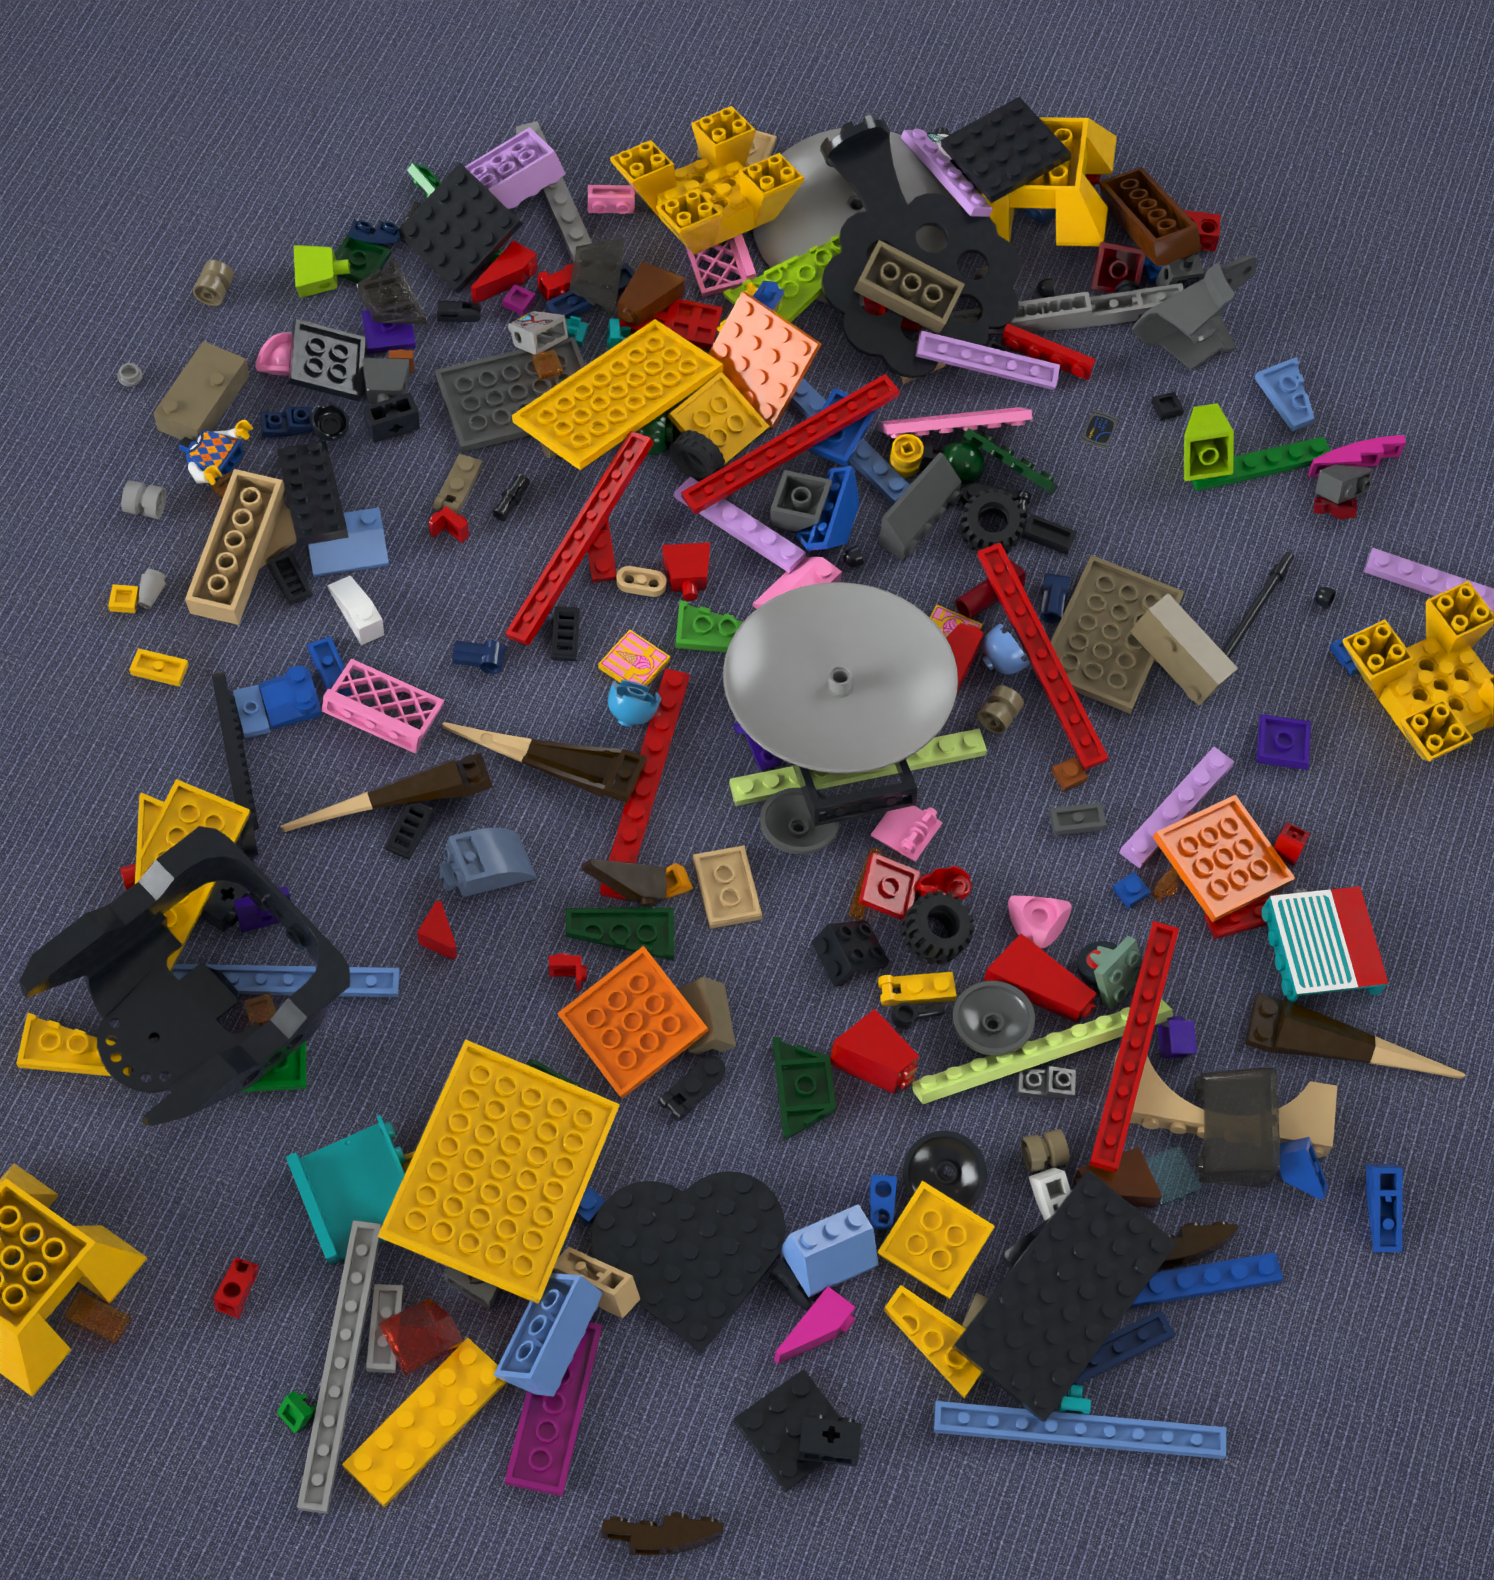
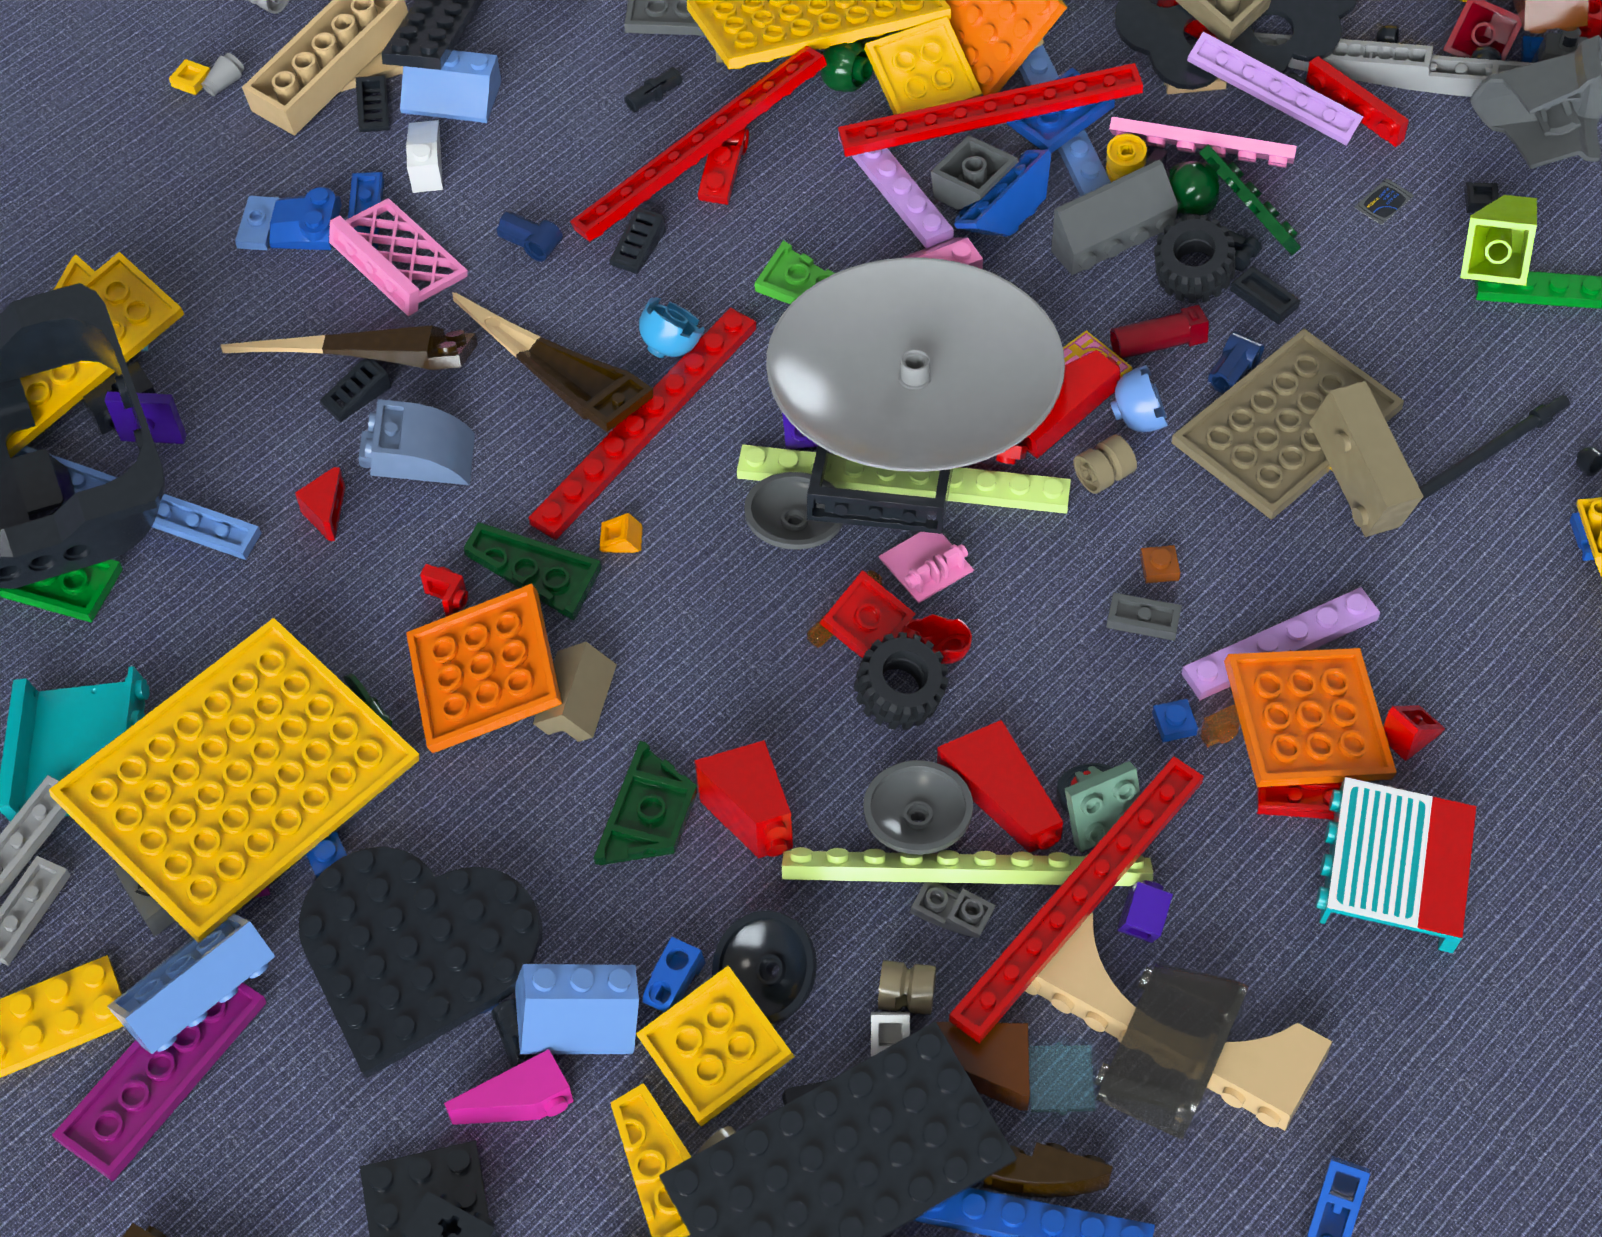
camera: 30 degrees right, 5 degrees down
(159, 667) = (186, 152): yellow plate -> none
(236, 760) = (207, 270): black gear -> none
(421, 1335) = (50, 932): clear red slope -> none
(451, 522) = (568, 92): red bracket -> none
(458, 484) = (603, 64): dark tan plate -> none
(617, 1286) = (297, 956): tan slope -> none
(633, 881) = (566, 515): dark brown slope -> none
(634, 660) = (701, 290): tile -> none
(641, 581) = (754, 213): tan plate -> none
(686, 567) = (811, 210): red torso -> none
(693, 1087) = (520, 768): black plate -> none
(696, 455) = (875, 92): black tyre -> none
(727, 887) = (679, 561): tan tile -> none
(848, 949) = (785, 671): black bracket -> none
(853, 557) = (1011, 254): black hinge -> none
(906, 1015) = (817, 772): black plate -> none
(917, 988) = (846, 746): yellow plate -> none
(1039, 918) = (1039, 715): bright pink hat -> none
(1042, 657) = (1183, 421): red plate -> none
(1283, 742) = (1456, 609): dark purple plate -> none
(1297, 1030) = (1321, 961): dark brown plate -> none
(1302, 1168) = (1237, 1127): blue slope -> none

